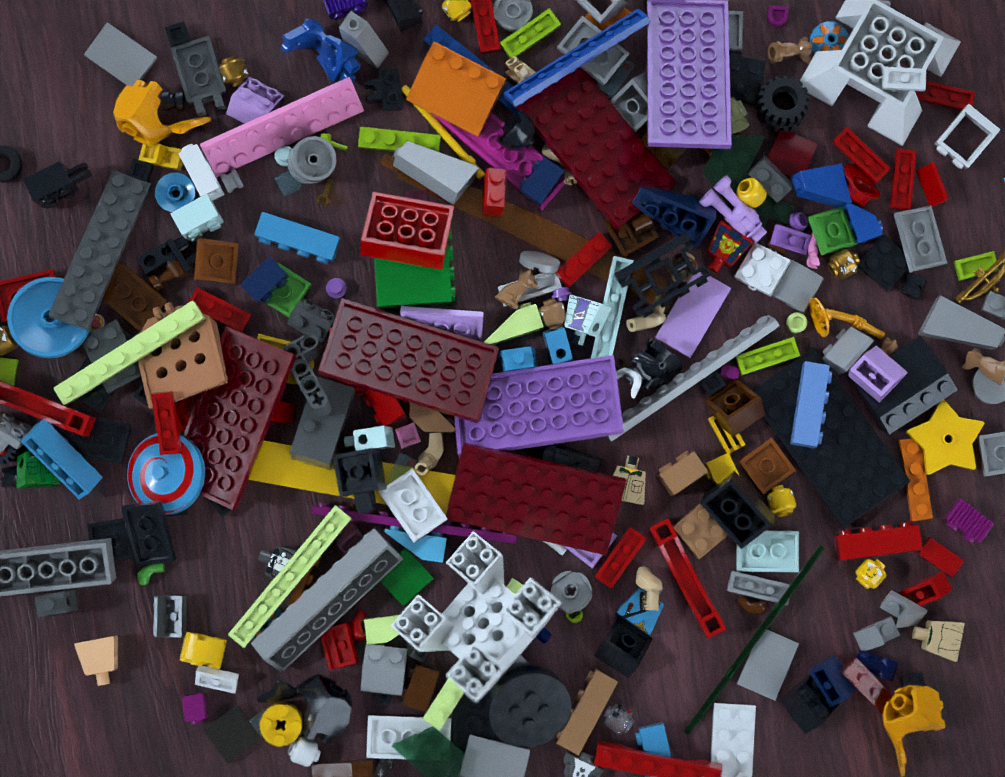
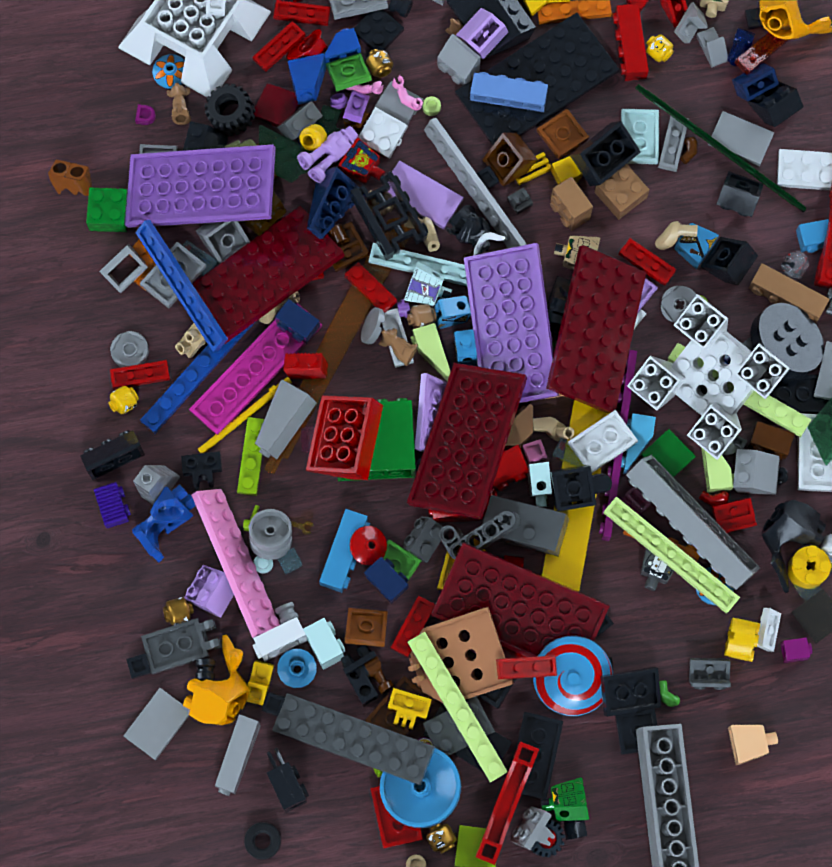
camera: 85 degrees left, 10 degrees down
(56, 603) = (700, 785): dark grey torso -> none
(61, 459) = (560, 774): dark azure brick -> none
(86, 135) = (237, 755): none -> light grey slope
(132, 305) = (408, 706): none -> yellow hinge
(308, 255) = (360, 545): none -> red dish
(336, 288) = (393, 515): medium lavender plate -> none
(456, 89) = (205, 398): orange slope -> none
(517, 132) = (249, 342): black cylinder -> none
(530, 34) = (153, 333): lime plate -> none
(686, 578) = (637, 217): red arch -> none
(688, 419) = (520, 201): none -> dark grey tile
(701, 660) = (740, 194): none -> black slope
(729, 372) = (476, 163): magenta piece -> none
(767, 356) = (462, 130): lime plate -> none
(781, 501) = (594, 121): yellow head -> none
(800, 292) = (407, 100): none -> bright pink arm
(821, 317) = (427, 79): light orange dish -> none

